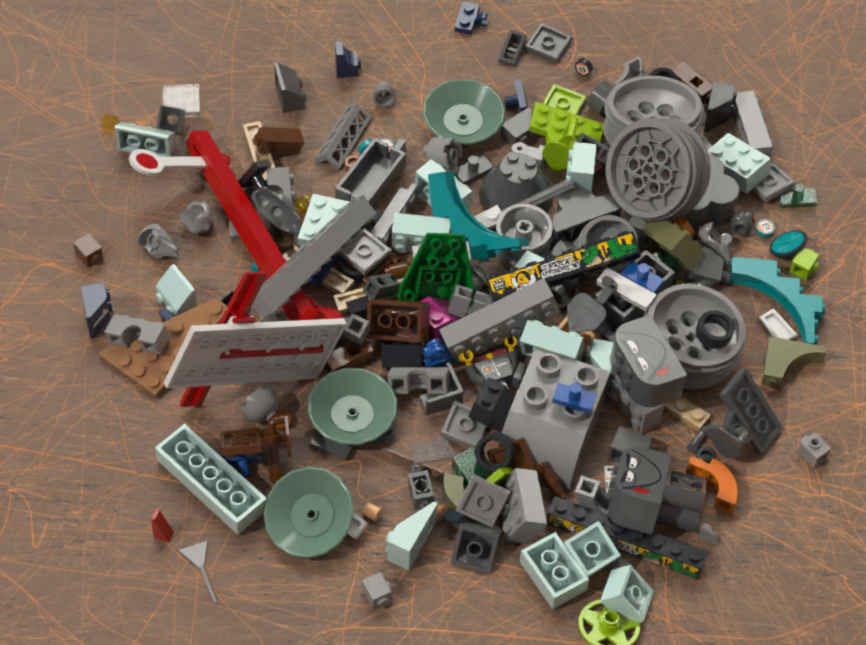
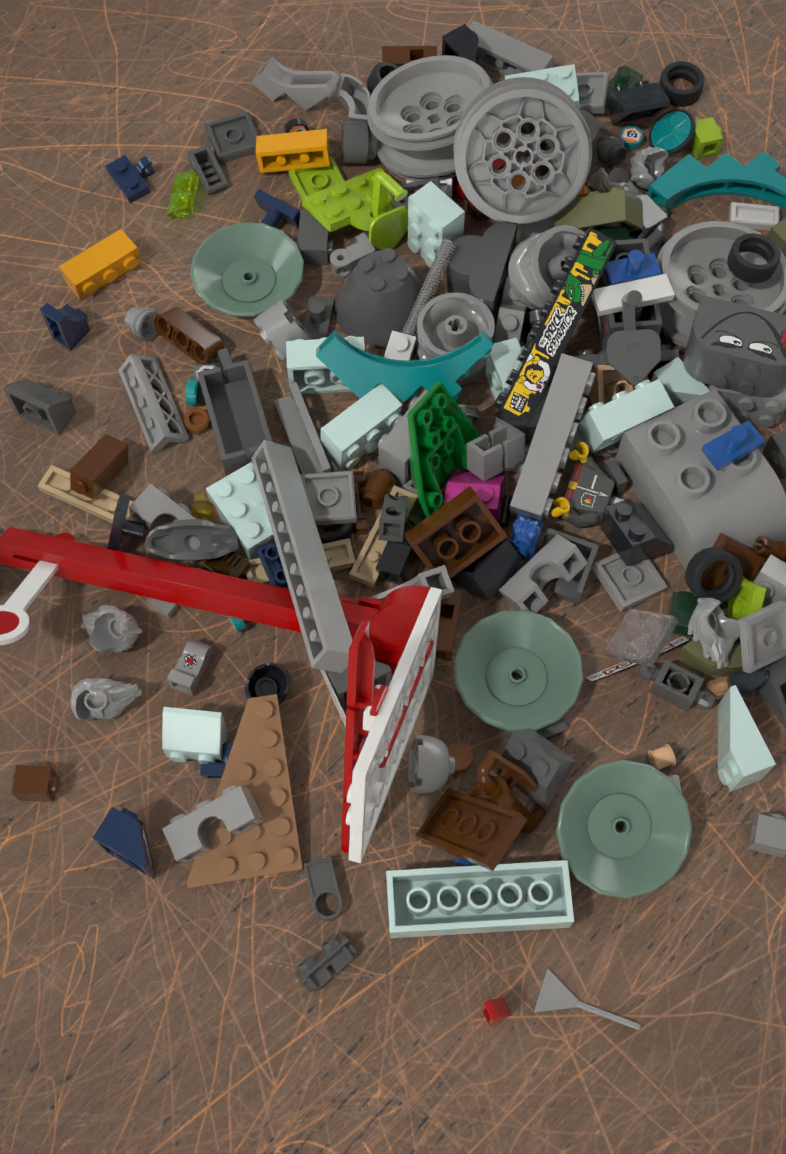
camera: 45 degrees left, 10 degrees up
(125, 440) = (332, 953): none -> dark grey hinge
(156, 408) = (323, 882): none -> dark grey piece
(212, 267) = (190, 667): none -> light grey leg
(306, 446) = (541, 761): none -> dark grey slope
(397, 118) = (188, 335): none -> reddish brown beam
(399, 48) = (100, 264): none -> light orange brick
(461, 474) = (713, 630): none -> light grey hair
(483, 49) = (183, 194): none -> clear neon green plate
(565, 75) = (293, 151): none -> light orange brick
(613, 47) = (304, 87): none -> light grey arch
(748, 246) = (647, 166): none -> light grey hair
(786, 210) = (637, 102): none -> black slope
(831, 236) = (685, 71): none -> black tyre

